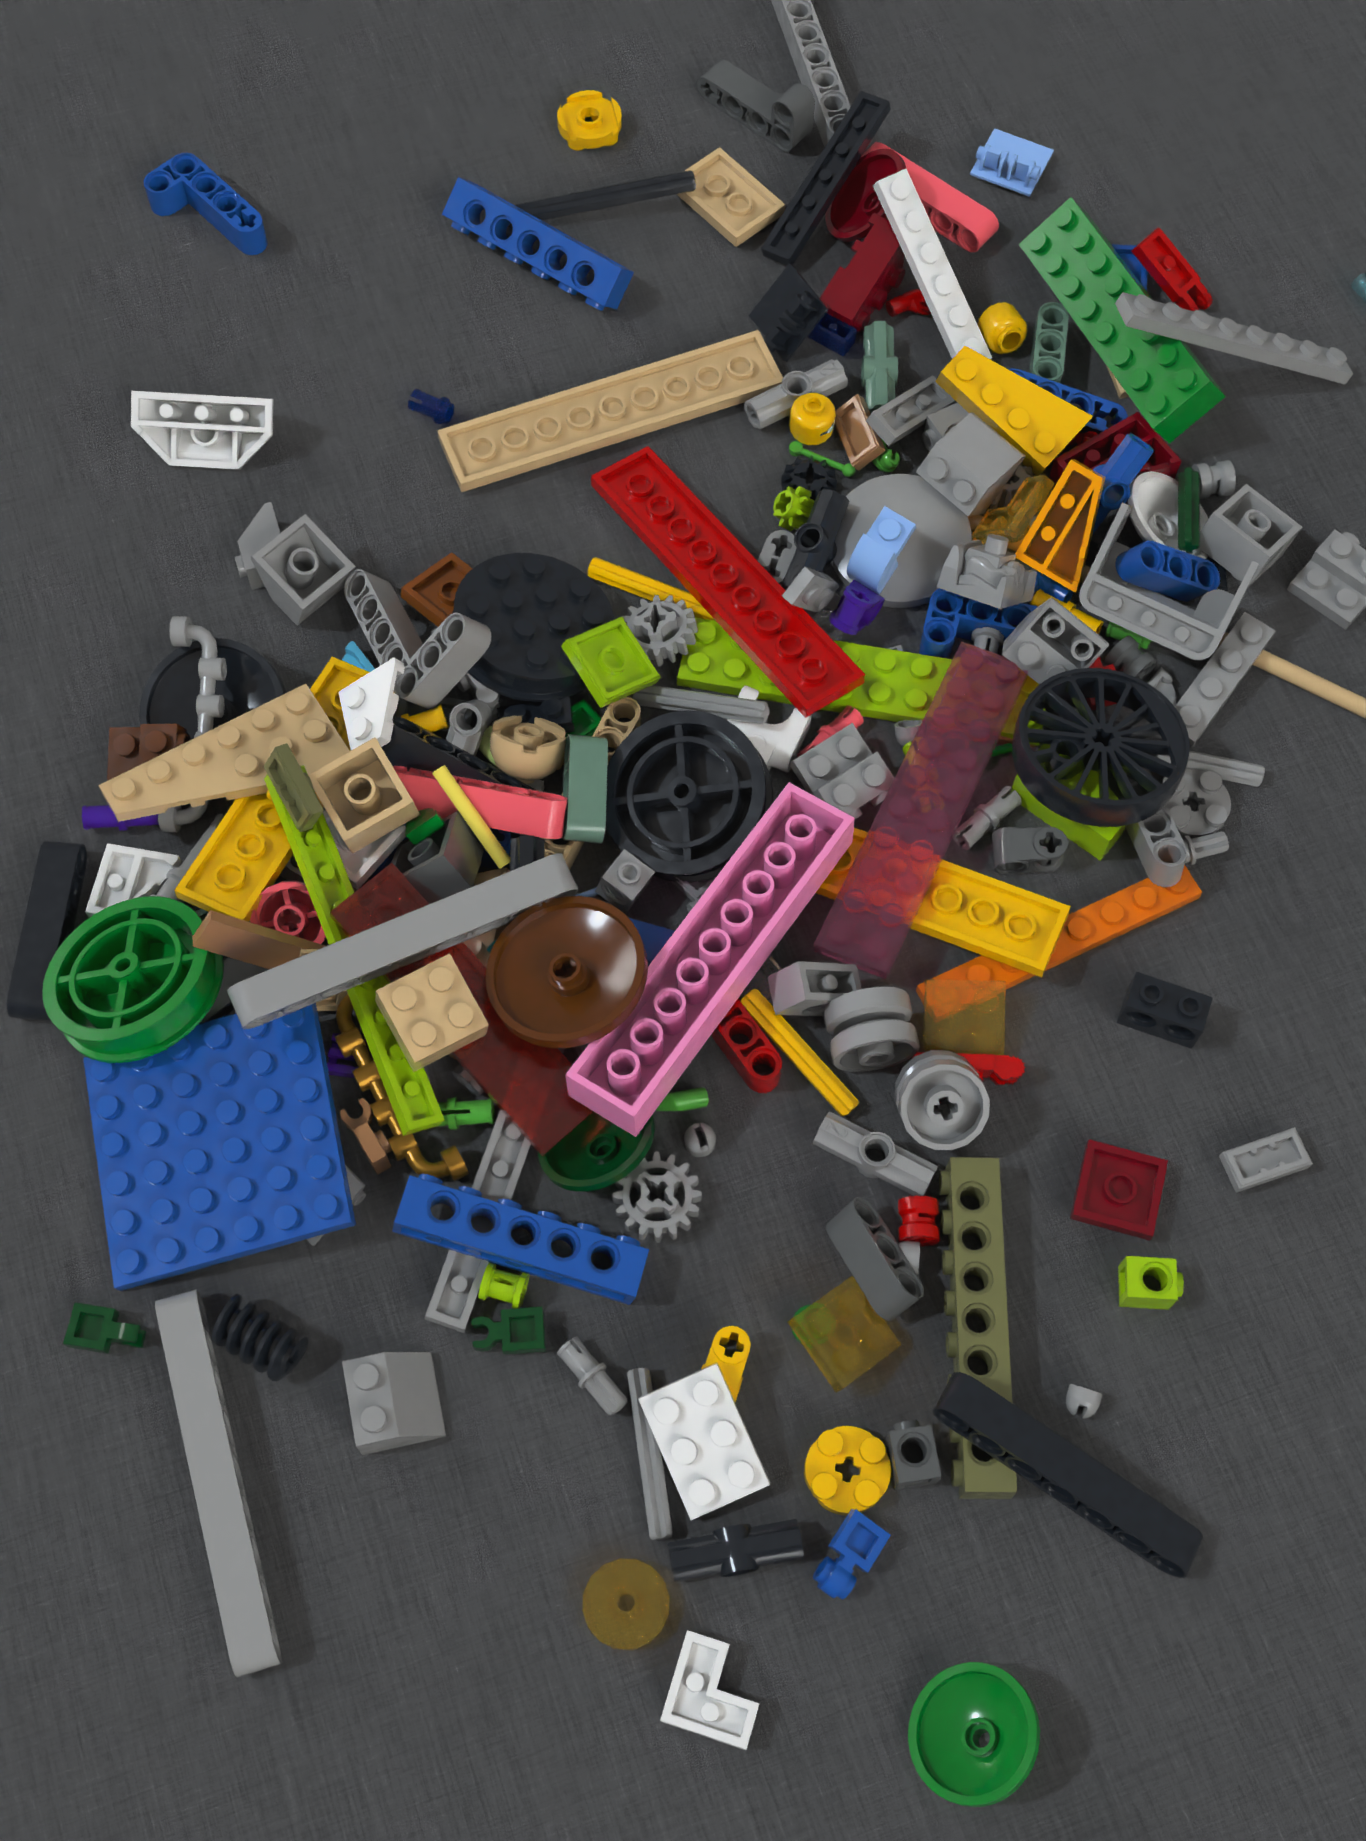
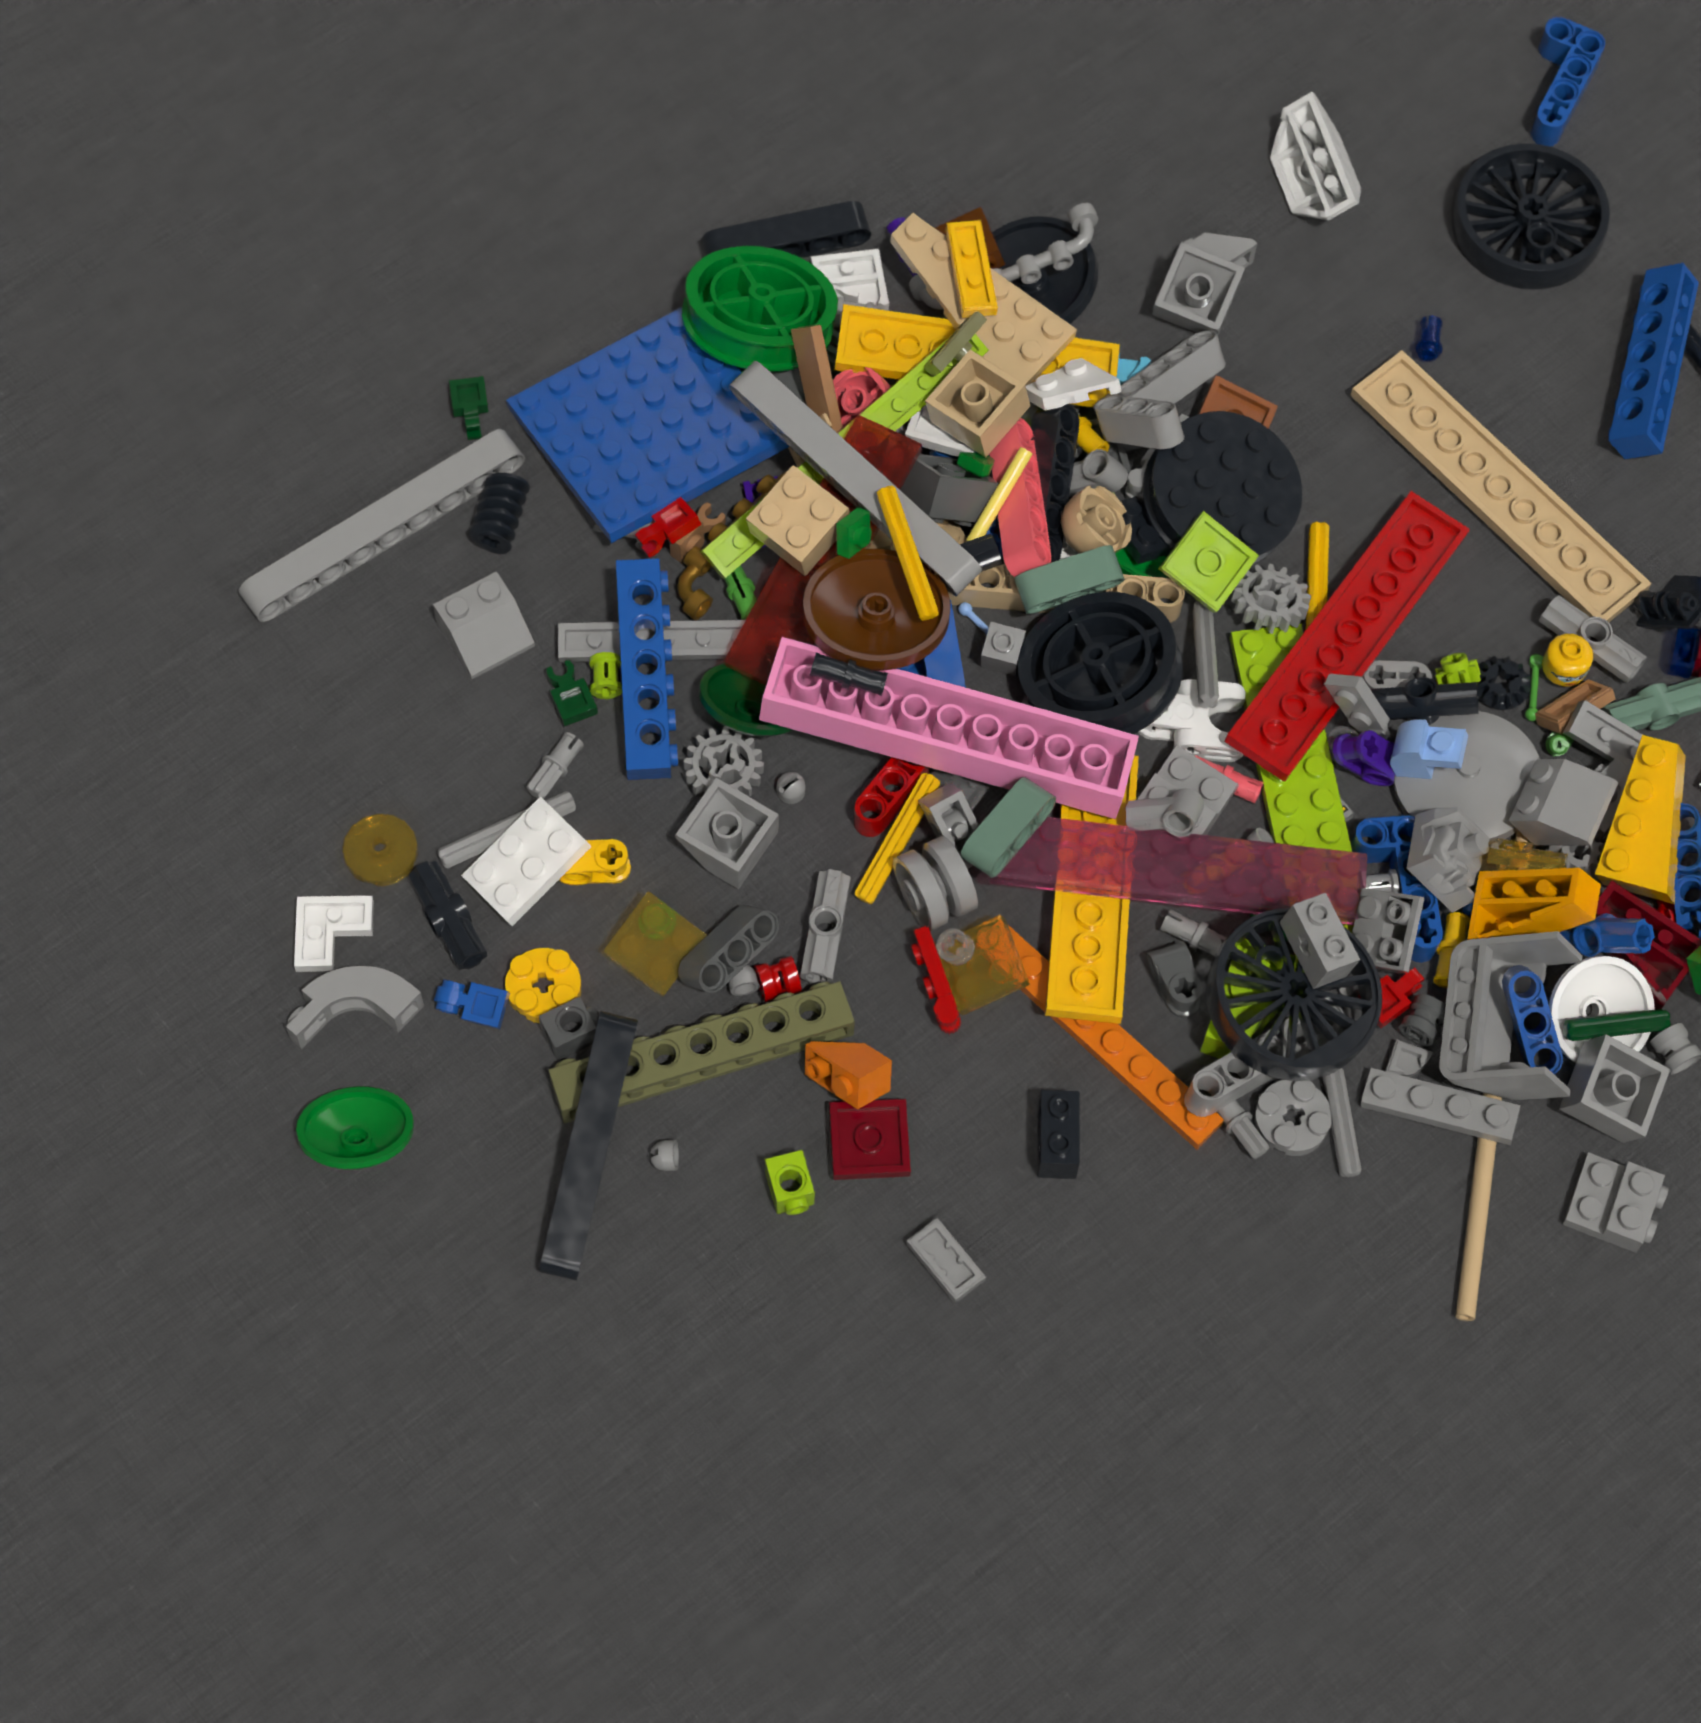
camera: 70 degrees right, 0 degrees up
(197, 750) = (971, 268): none -> yellow tile
(339, 282) = (1529, 216): none -> black piece
(360, 1152) = (669, 523): none -> red plate
(472, 961) = (853, 532): none -> green plate
(525, 913) = (907, 553): none -> yellow axle
(640, 1020) = (848, 674): none -> black pin
(685, 1100) = (817, 758): bright green arm -> none
(745, 1213) = (728, 832): none -> light grey slope
(807, 1656) = (350, 990): none -> light grey arch
(849, 933) = (1008, 827): none -> sand green beam
(876, 781) = (1171, 814): none -> light grey piece
(944, 1123) = (888, 956): light grey wheel -> none
(957, 1028) = (963, 953): none -> clear bush
(1045, 1183) = (849, 1070): none -> orange slope
(1072, 696) = (1319, 940): none -> light grey brick

